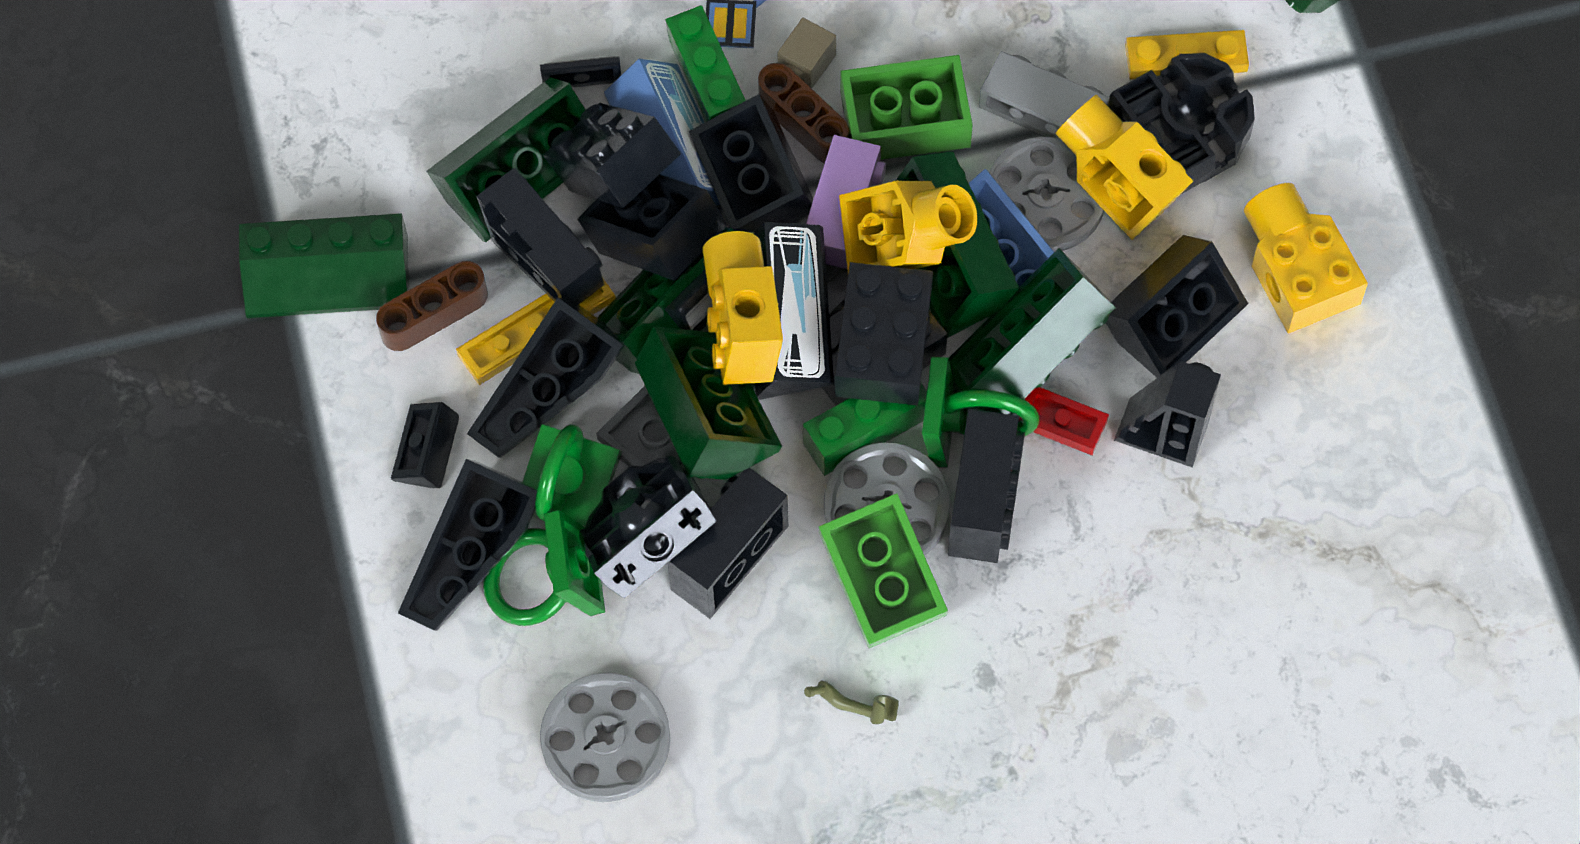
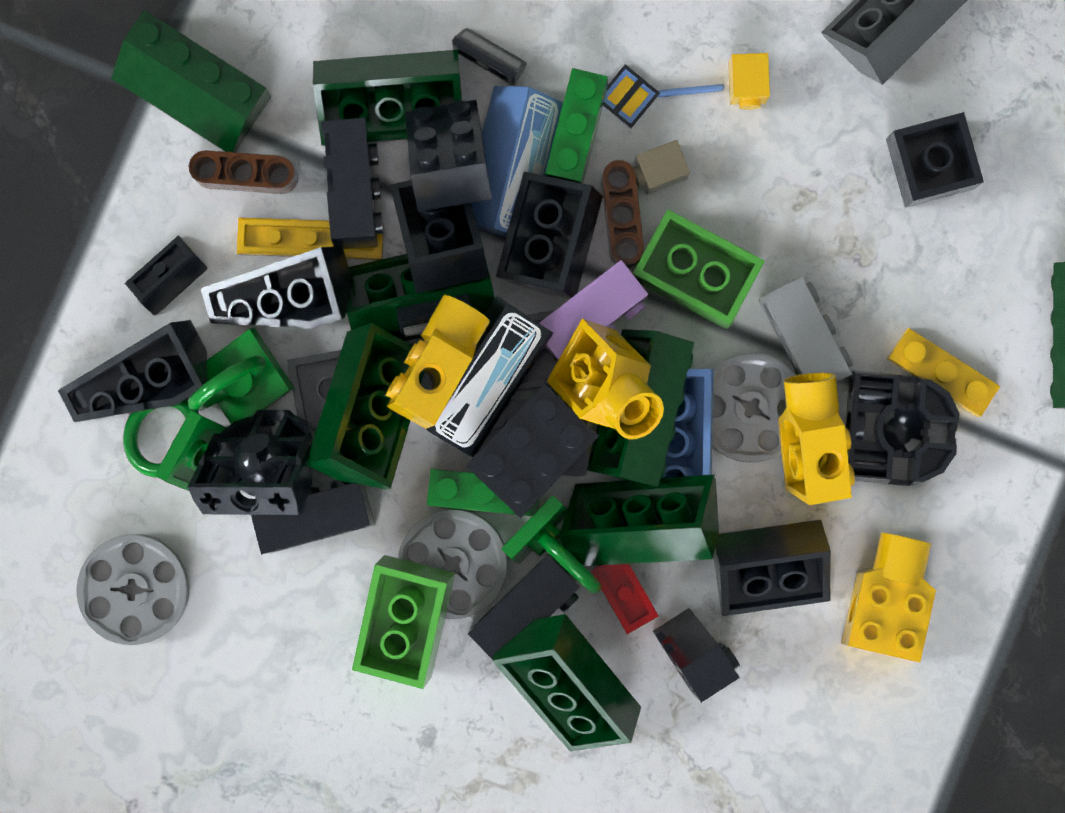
camera: 30 degrees right, 20 degrees up
(883, 706) = (336, 709): olive piece -> none
(1077, 513) = (569, 684): none -> dark green slope

